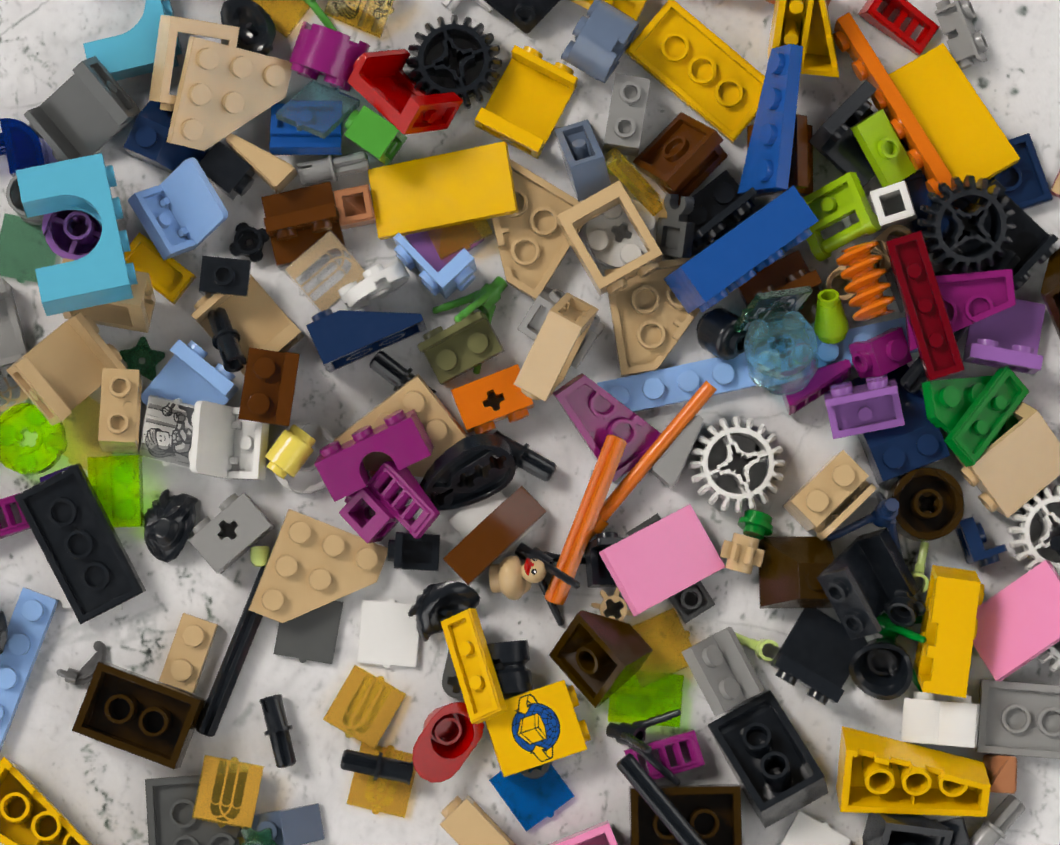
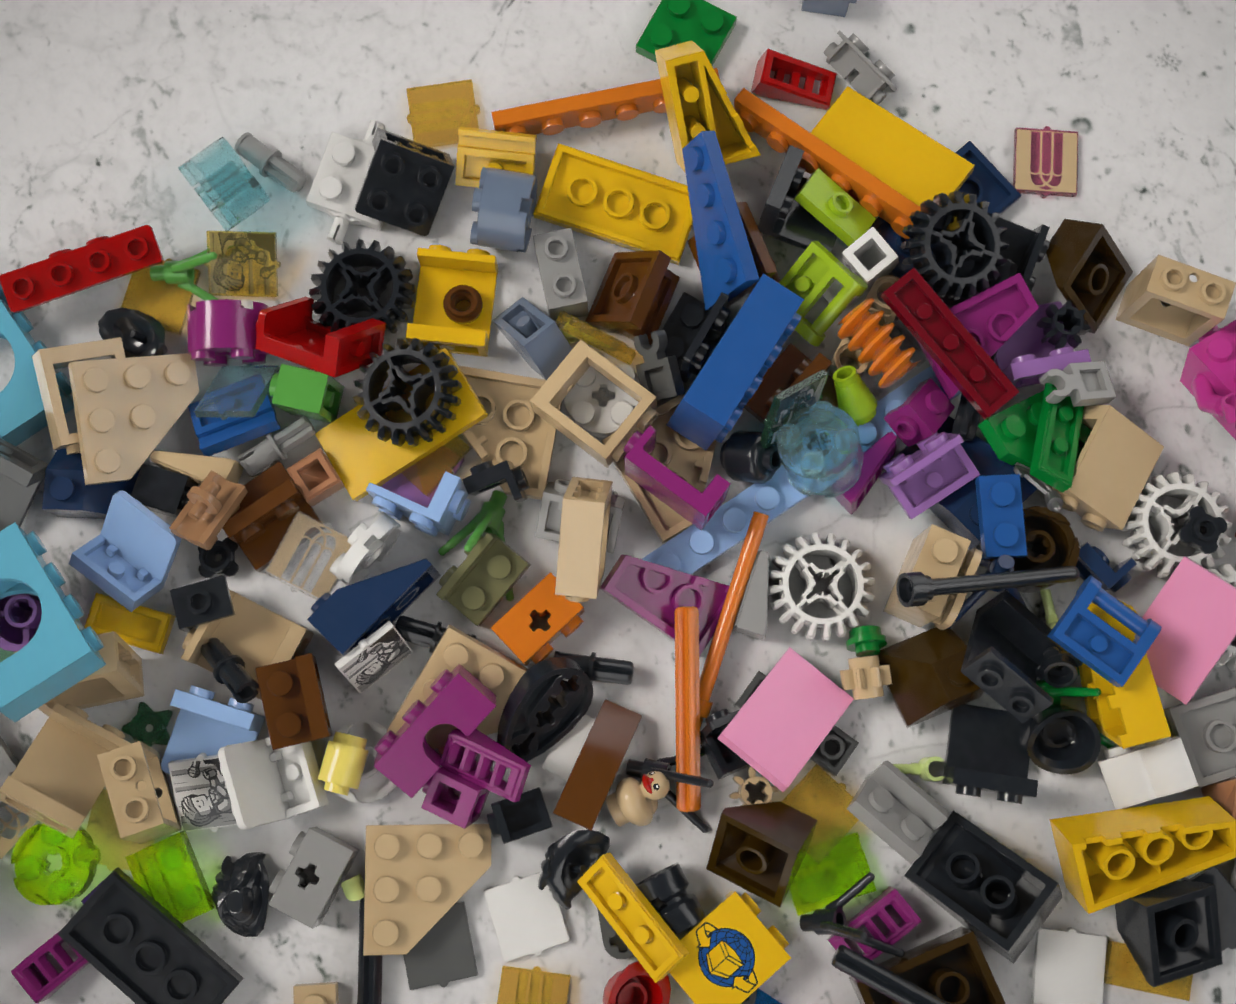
camera: 25 degrees left, 5 degrees down
(258, 202) = (208, 510): none -> medium nougat hips
(347, 376) = (374, 657): none -> piece
(454, 139) = (437, 381): none -> black gear
(497, 264) = (488, 476): none -> black bracket
(534, 96) = (458, 294): none -> reddish brown plate
(658, 359) = (668, 486): none -> magenta panel
(805, 496) = (917, 589): none -> black piece
(906, 466) = (1001, 516): none -> blue plate
(937, 600) = (1099, 643): none -> blue plate
(957, 468) = (1052, 498): none -> flat silver piece
(1026, 383) = (1084, 382): none -> light grey plate
(1044, 327) = (1072, 321): none -> black gear

